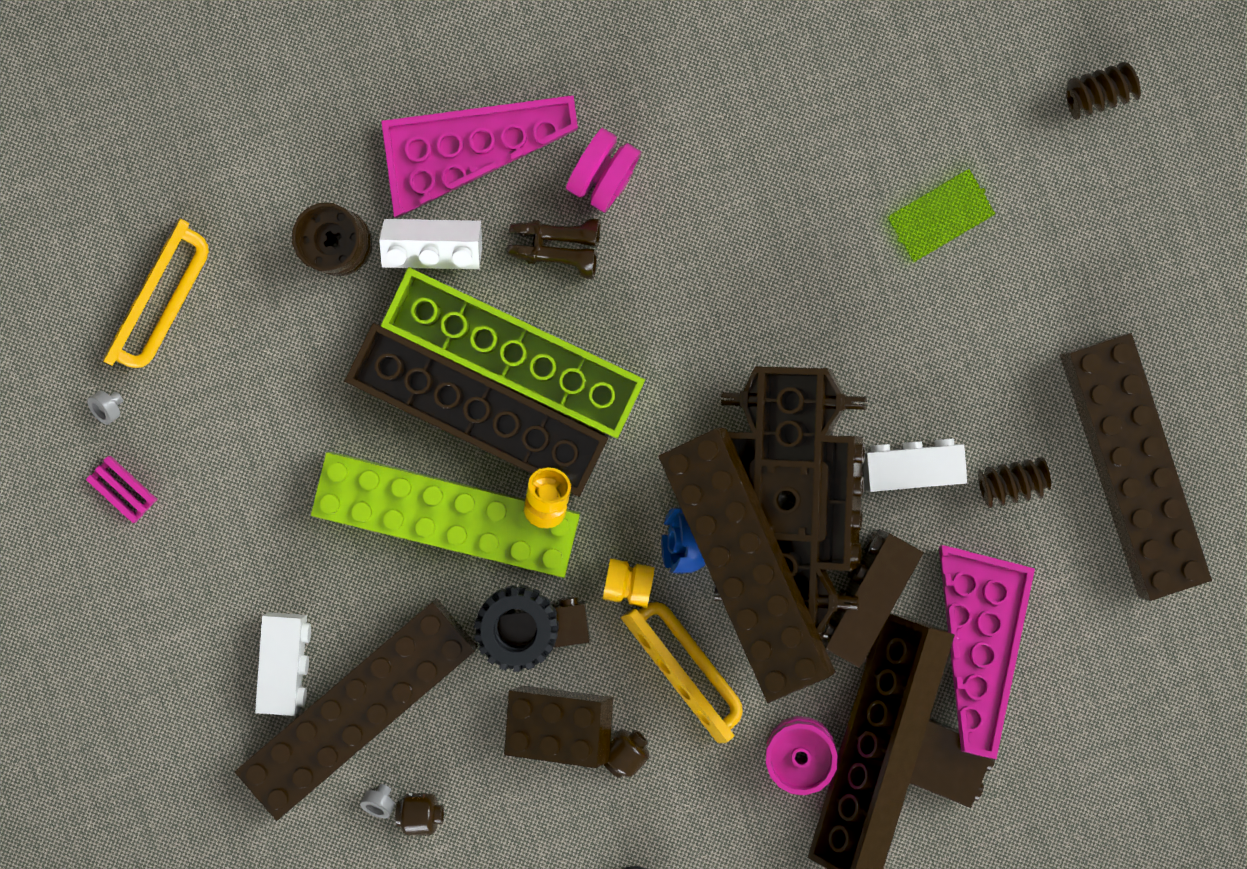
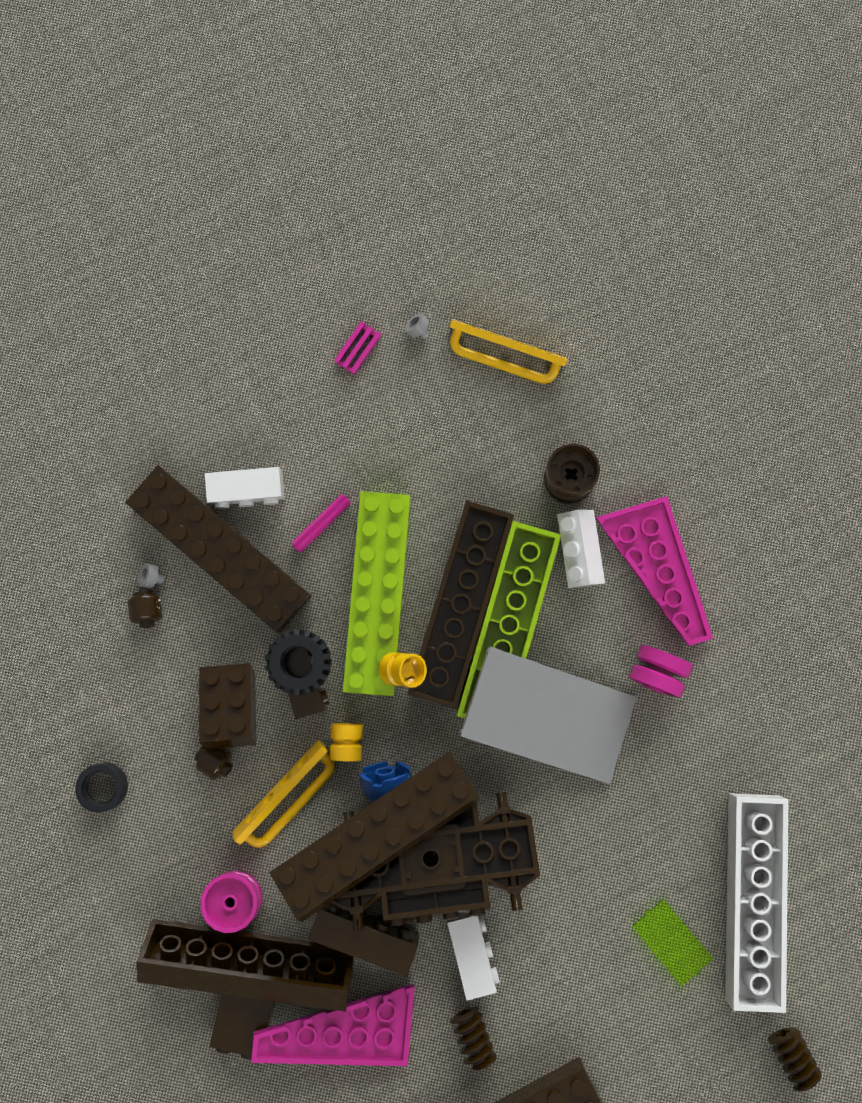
camera: 85 degrees right, 5 degrees down
(345, 572) = (321, 523): none -> dark pink axle
(583, 259) = (589, 665): dark brown piece -> none
(635, 322) = (548, 715): none -> light grey piece
(907, 102) = (757, 903): none -> white brick

